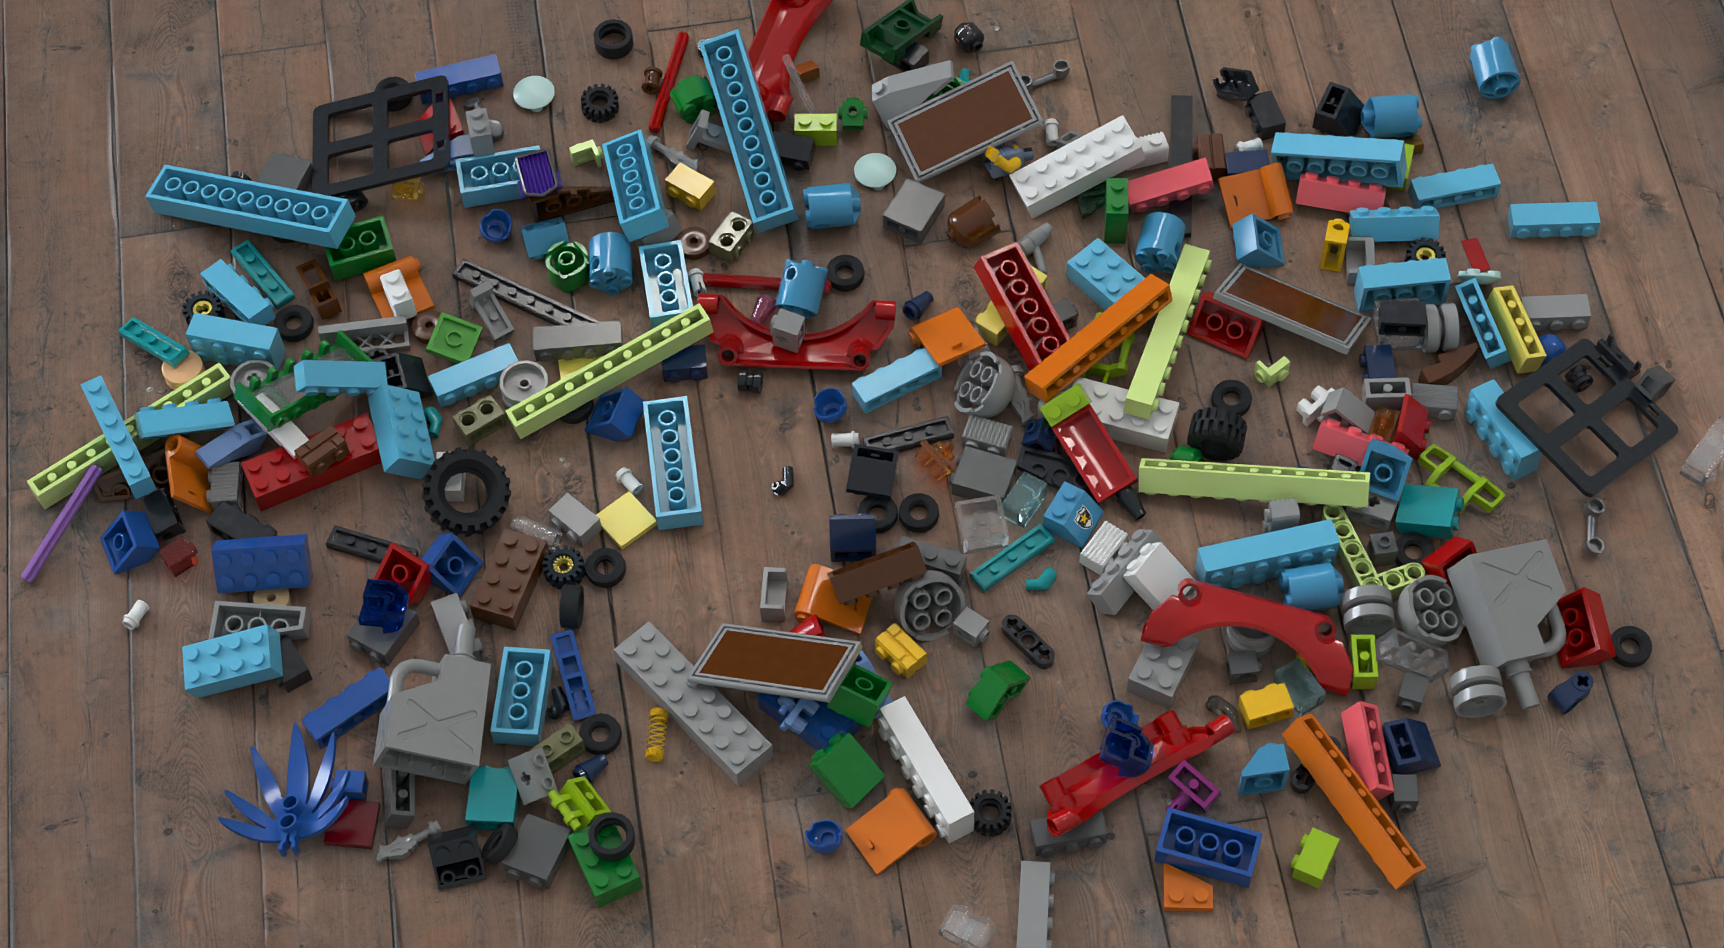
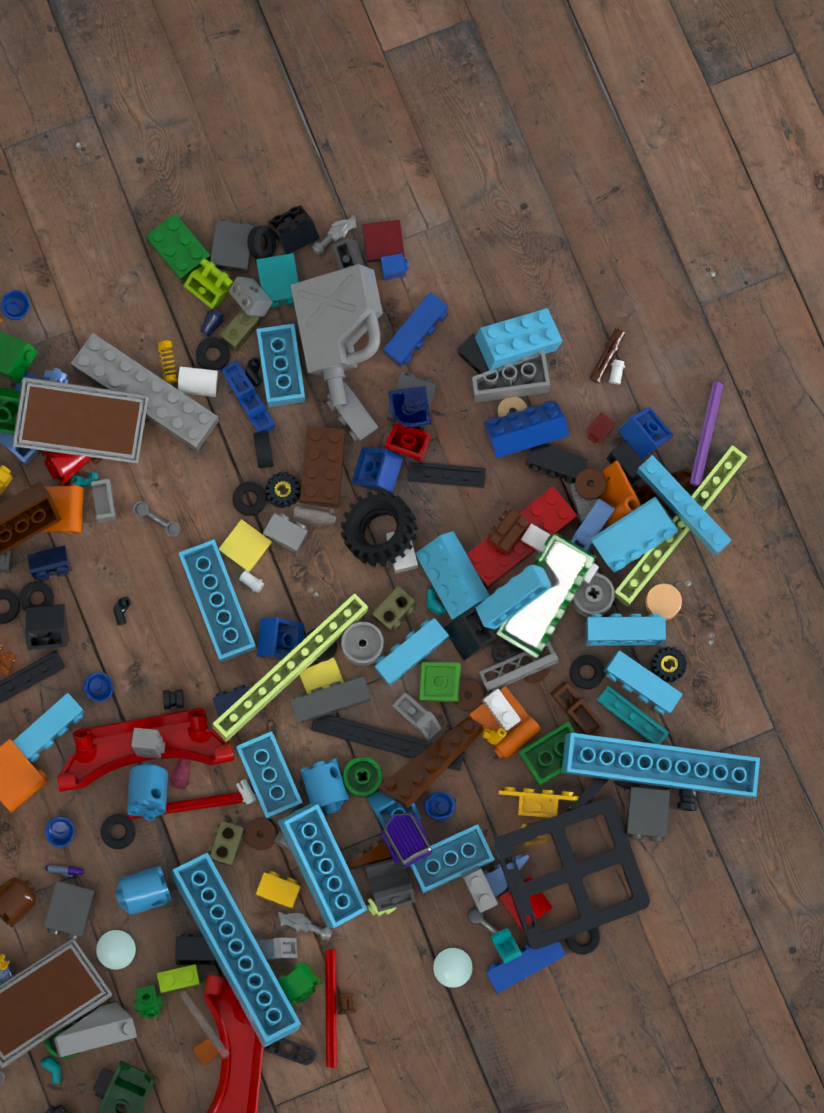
camera: 160 degrees right, 20 degrees up
(131, 641) = (610, 349): none -> reddish brown pin
(153, 342) = (698, 620): teal tile -> none
(213, 482) = (594, 476): none -> reddish brown piece
(294, 814) = (427, 231): blue plant -> none
(392, 209) = (538, 804): none -> yellow bracket
(415, 275) = (494, 737): none -> yellow arm
(471, 87) = (506, 945): none -> teal bracket
(504, 250) = (423, 770): none -> reddish brown wing
(573, 159) = (390, 885): none -> dark grey panel
(599, 93) = (399, 967): black tyre -> none
(609, 27) = (410, 1044): black tyre -> none
(611, 819) = (172, 239): black tyre -> none
(626, 706) = (198, 381): none -> white brick
(702, 554) = (142, 510): none -> flat silver bar
(788, 623) = (84, 482): none -> teal arm
(845, 439) = (79, 661): white pin -> none
(907, 279) = (59, 831): none -> blue hair
(911, 249) = (64, 870): none -> piece
(916, 306) = (45, 809): dark blue cone -> none

